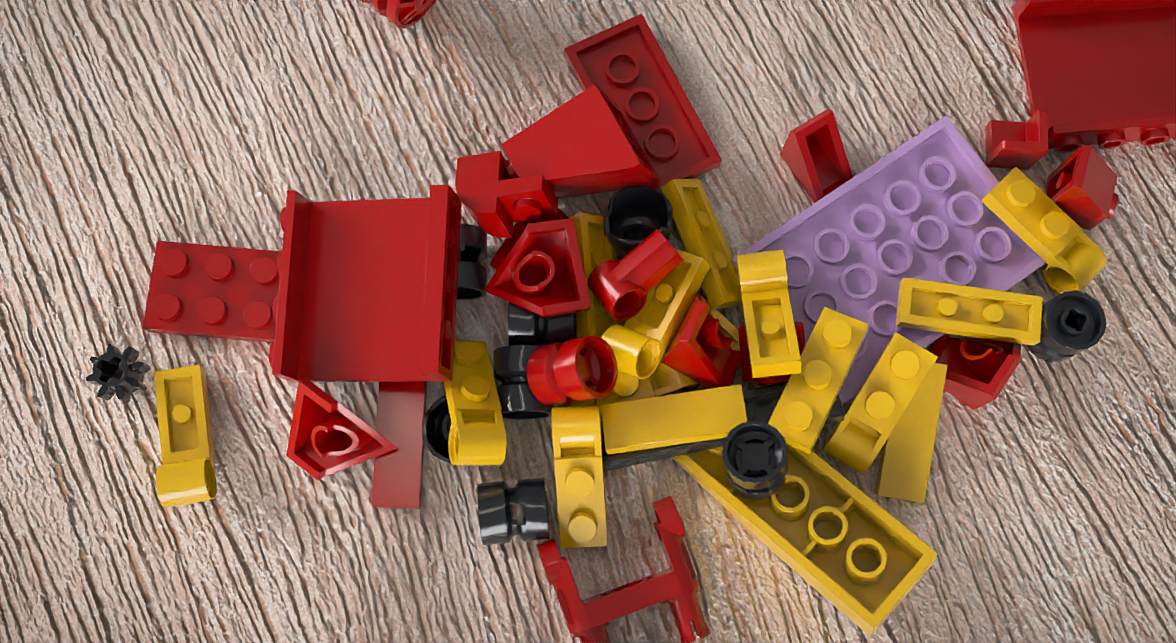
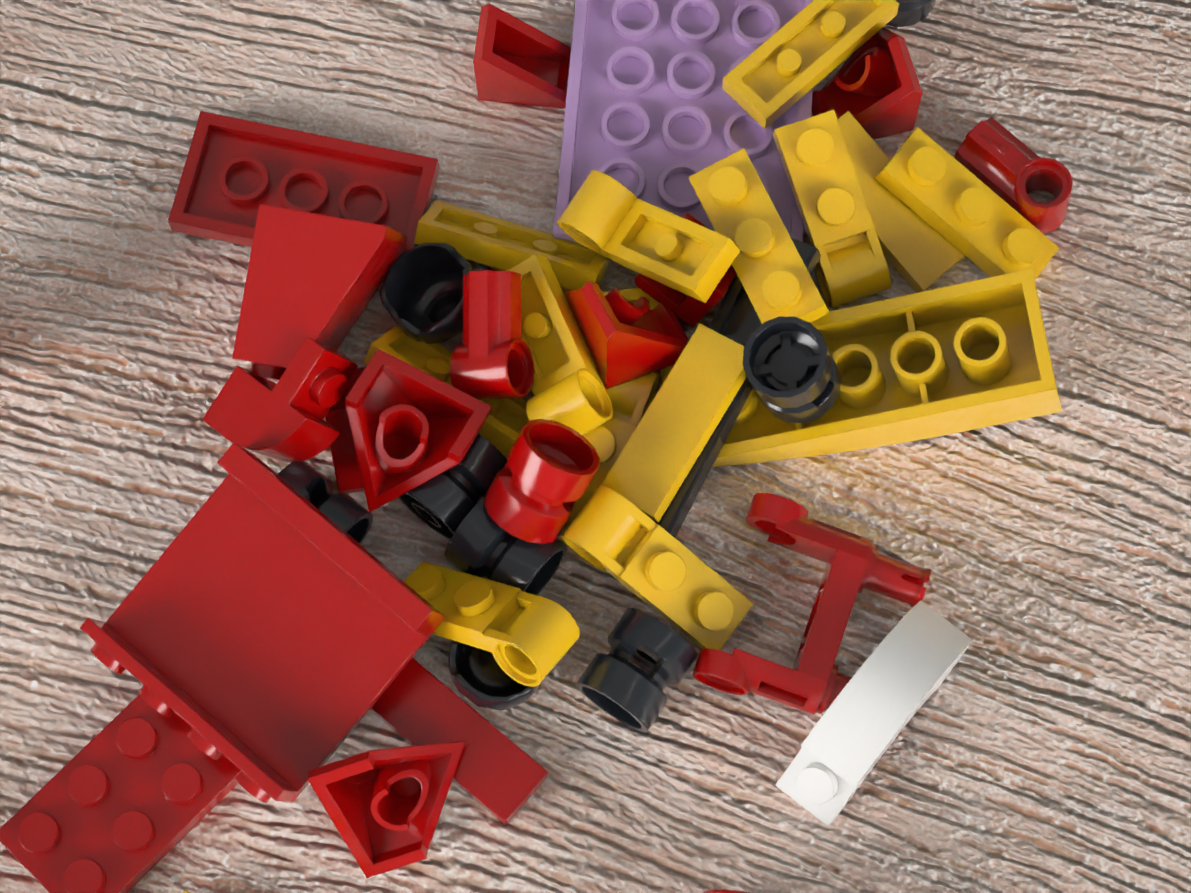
camera: 45 degrees left, 5 degrees down
(946, 482) = (964, 208): none -> yellow plate
(996, 488) = (1015, 171): none -> red piece

